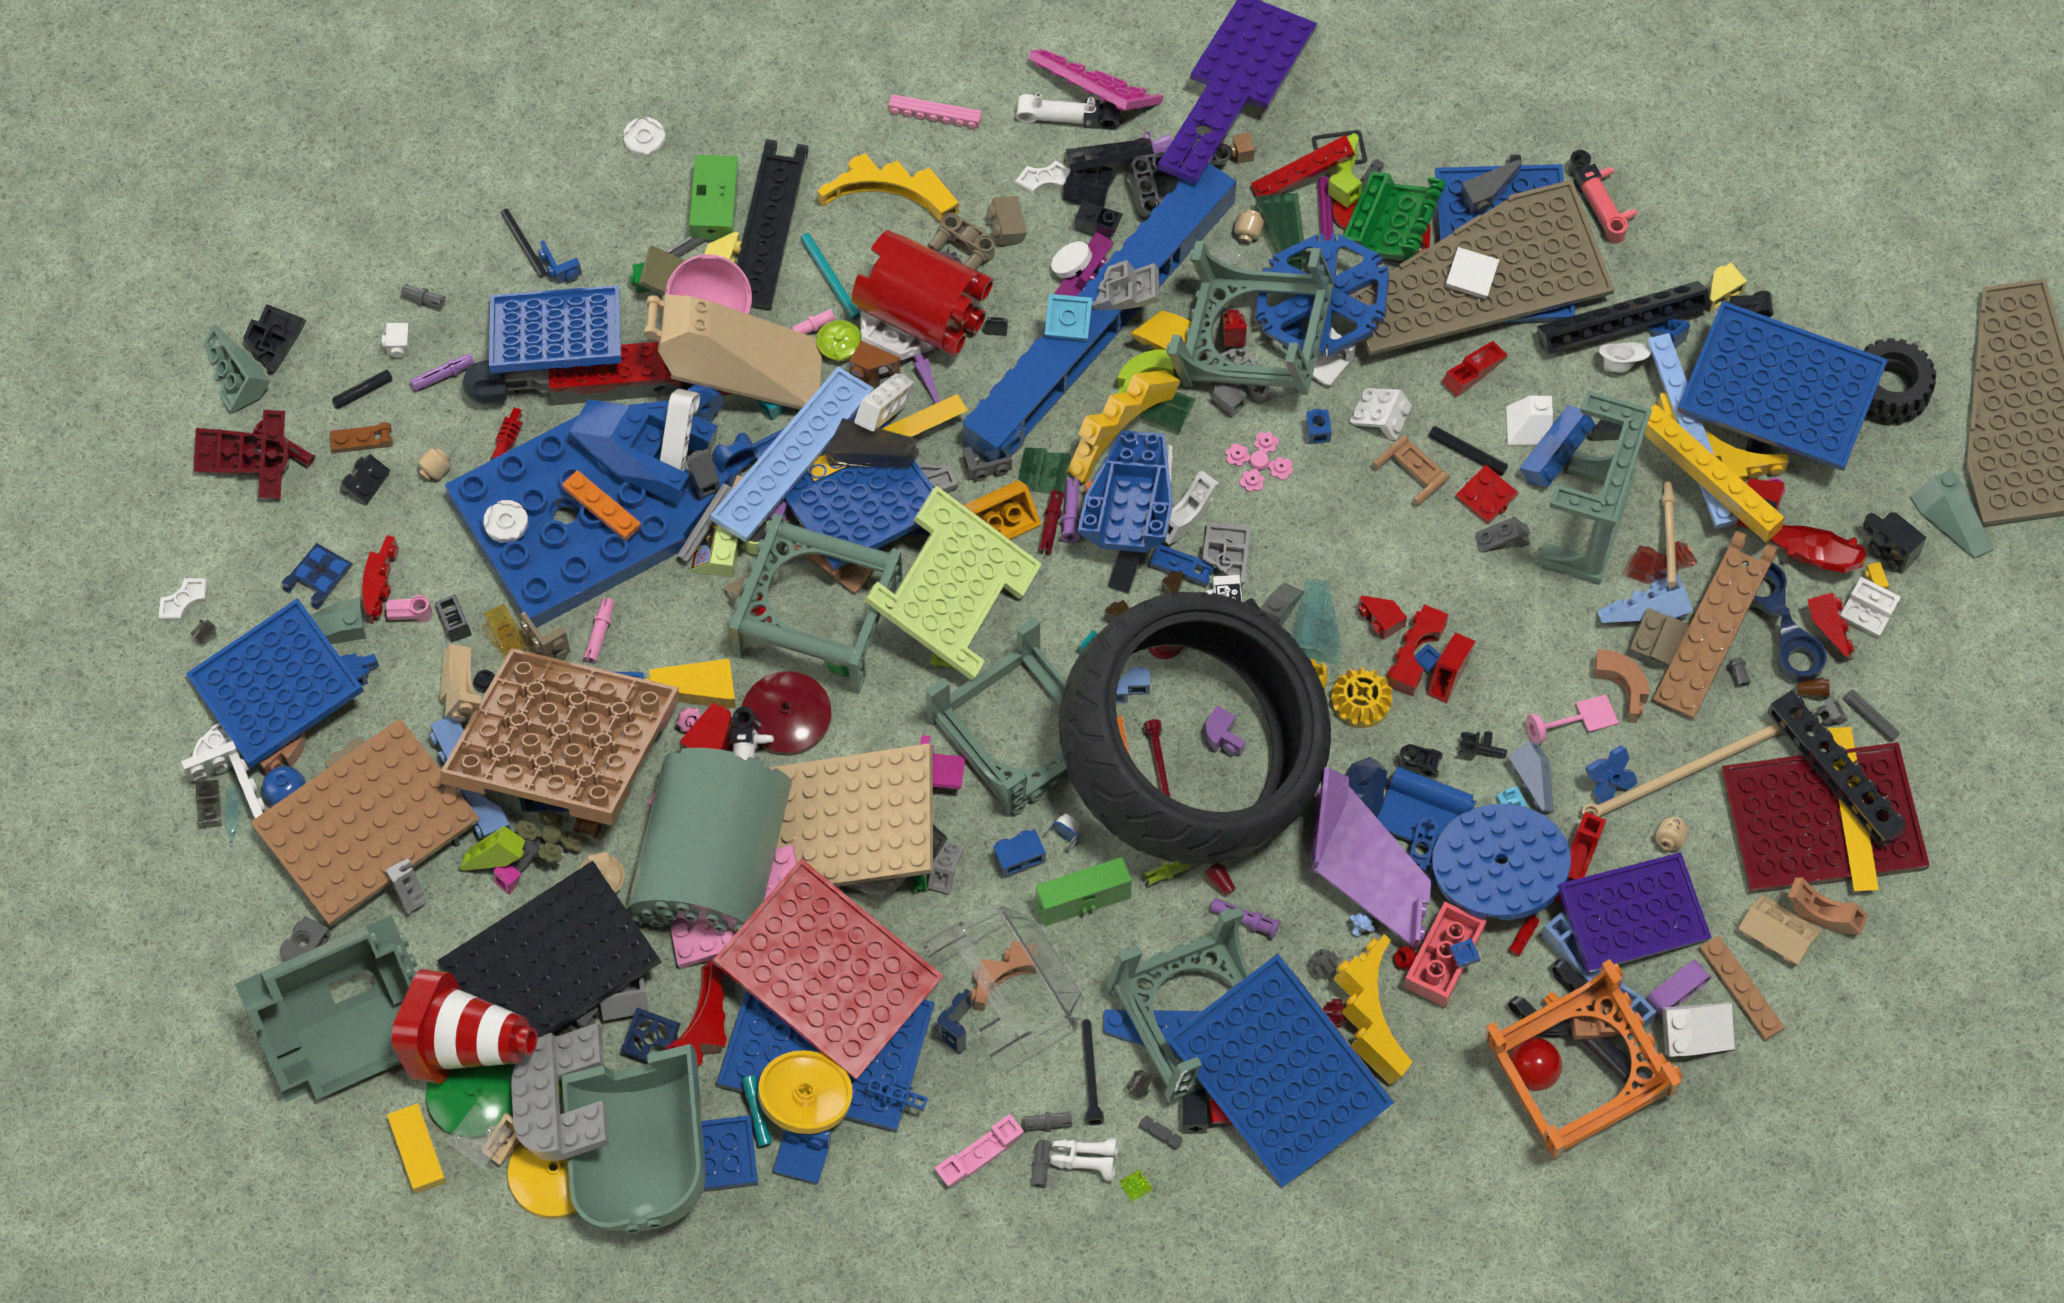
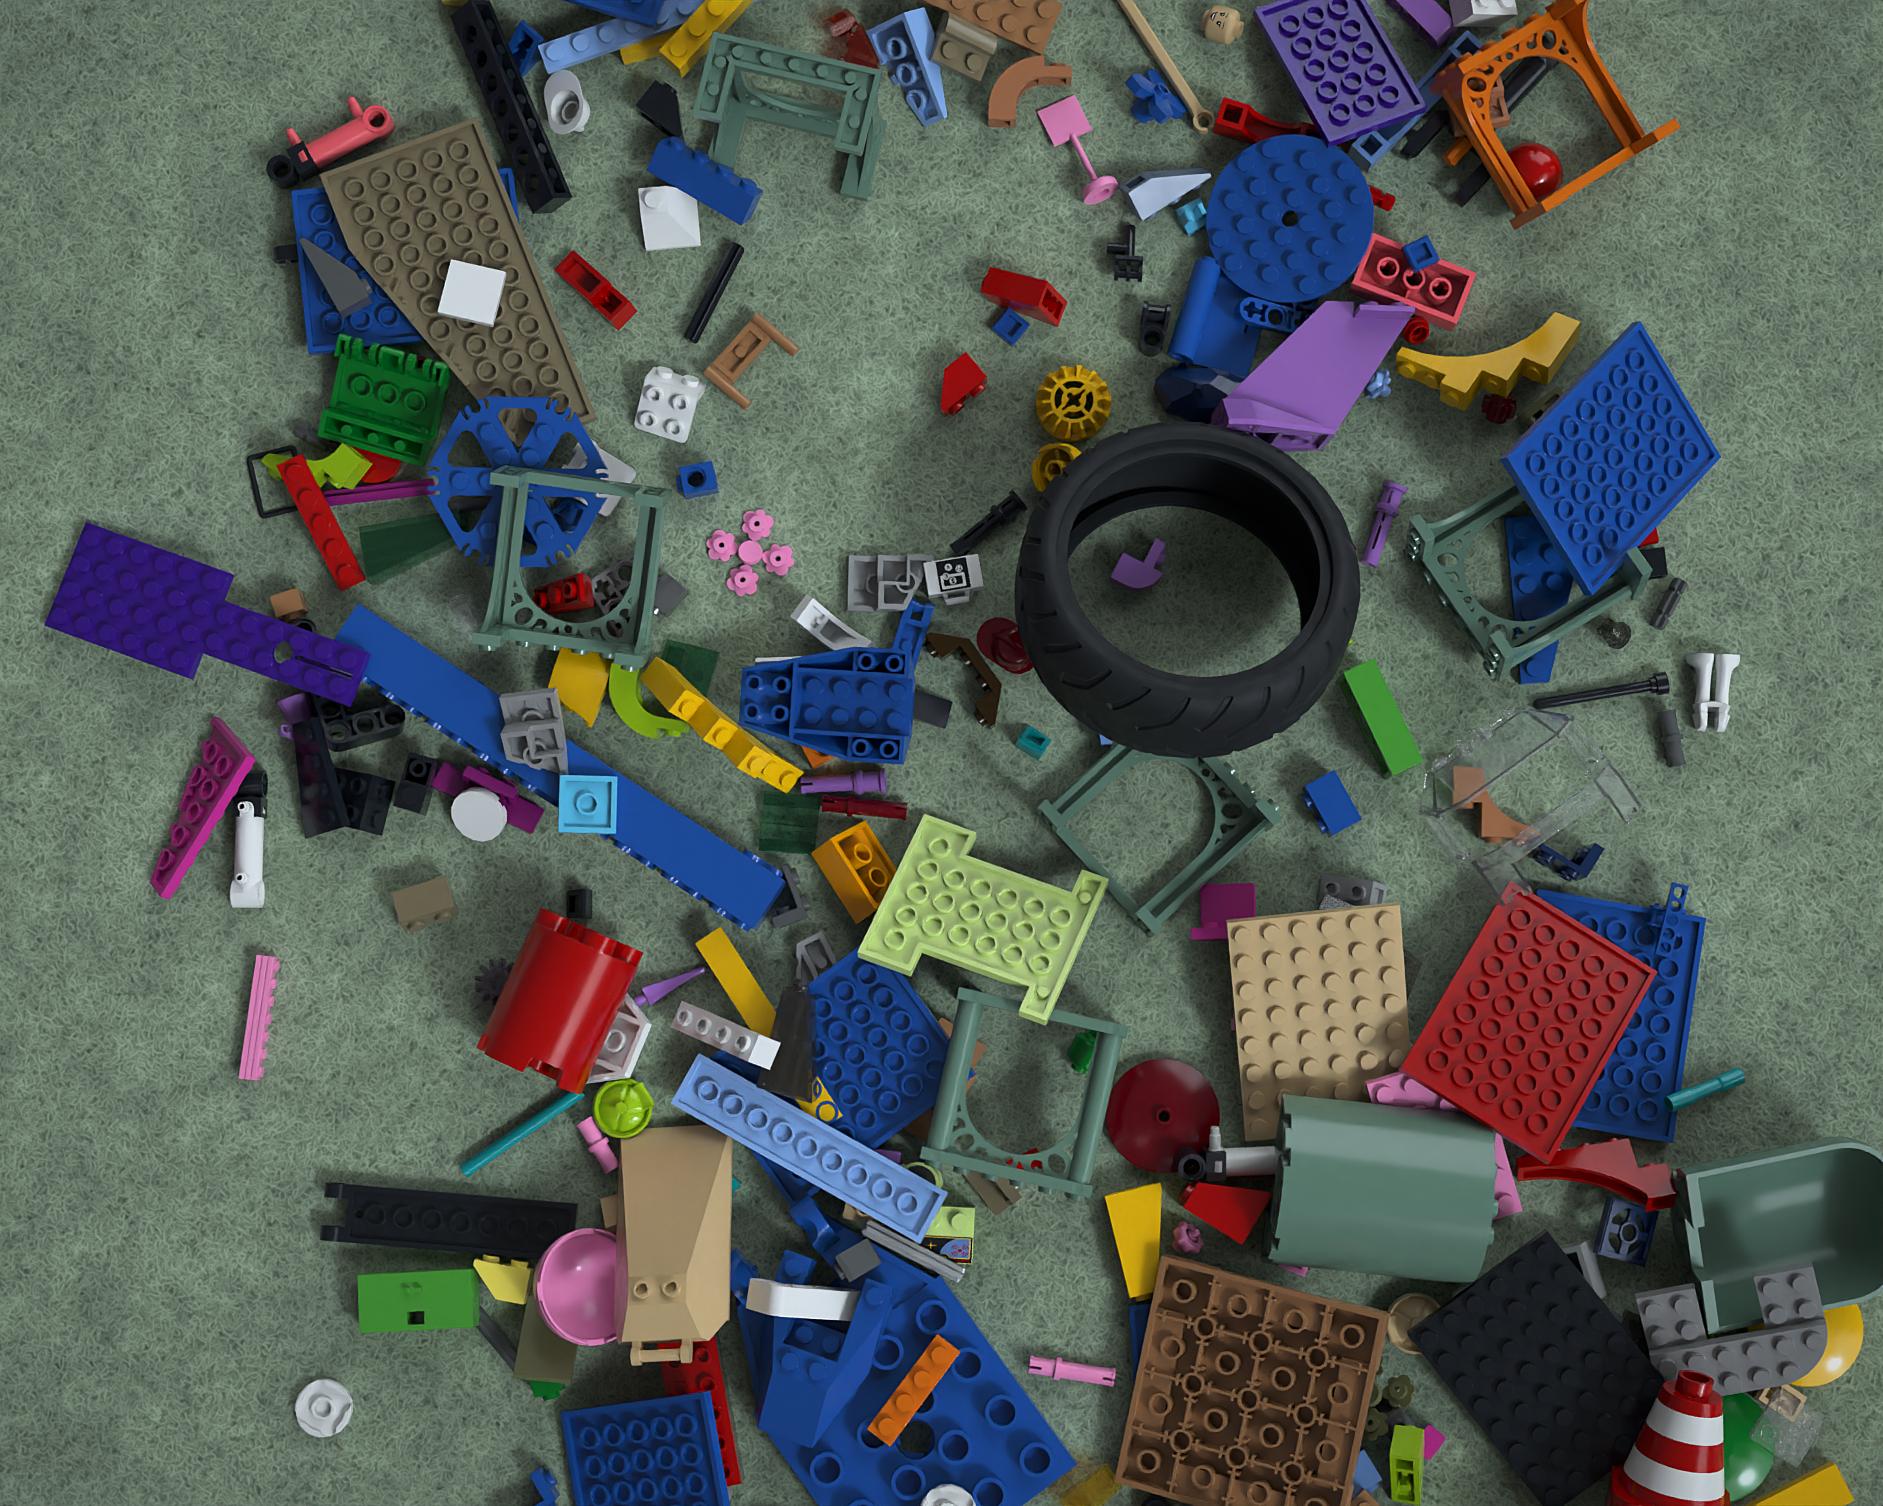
camera: 90 degrees left, 20 degrees up
(552, 644) = (1109, 1423): dark tan bracket -> none
(729, 1153) = (1757, 1118): blue plate -> none
(803, 1155) = (1749, 1028): blue bracket -> none
(804, 1092) = (1687, 1032): yellow dish -> none
(864, 176) = (381, 1020): yellow arch -> none
(873, 364) = (665, 1058): dark orange slope -> none
(966, 237) = (453, 954): dark tan piece -> none
(980, 1152) = (1721, 817): bright pink slope -> none
(1036, 178) = (346, 851): white tile -> none
(1041, 1164) = (1726, 741): dark grey axle -> none
(1067, 828) = (1289, 747): piece -> none
(1136, 1185) = (1737, 628): clear neon green tile -> none
(1153, 729) = (1145, 653): dark red piece -> none
(1249, 226) = (408, 588): tan head -> none
(1282, 602) = (964, 509): dark grey slope -> none
(1317, 623) = (982, 464): clear light blue wedge -> none
(1324, 962) = (1435, 425): dark grey gear -> none
(1428, 628) = (1035, 350): red arch -> none
(1487, 494) = (775, 266): red plate -> none
(1502, 533) = (834, 243): dark grey bracket -> none
(1668, 503) = (832, 36): tan bar -> none

